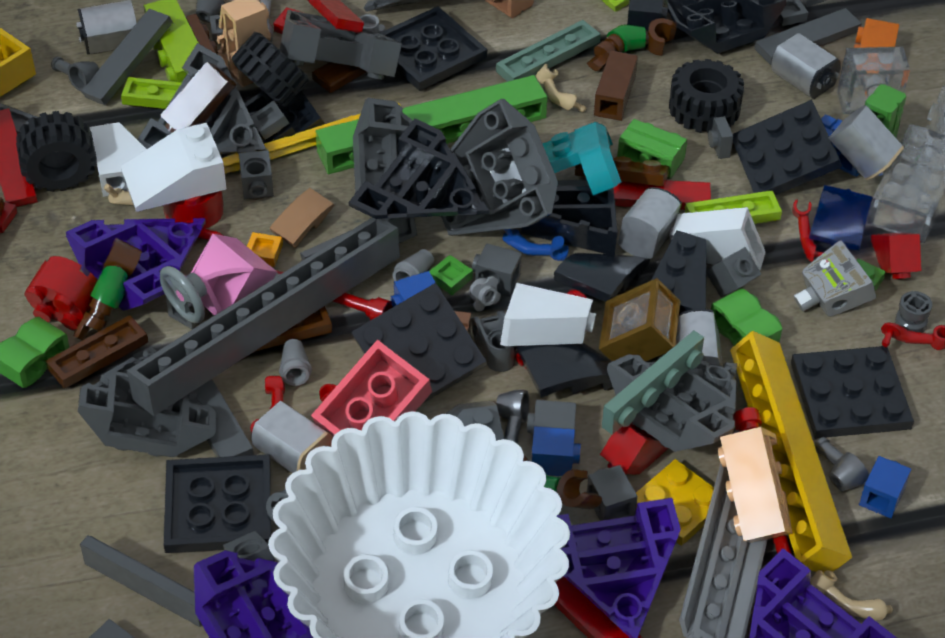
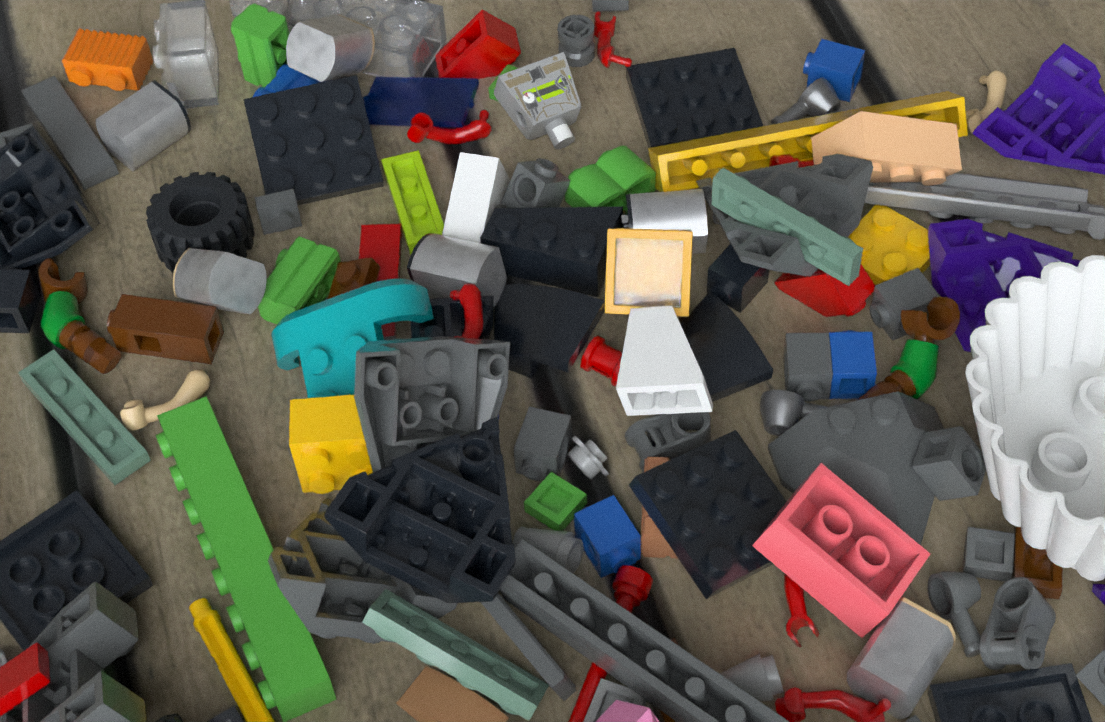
camera: 90 degrees left, 5 degrees up
(333, 207) = (456, 654): none -> sand green plate
(601, 211) = (472, 304): none -> red piece
(642, 97) = (219, 280): none -> flat silver piece

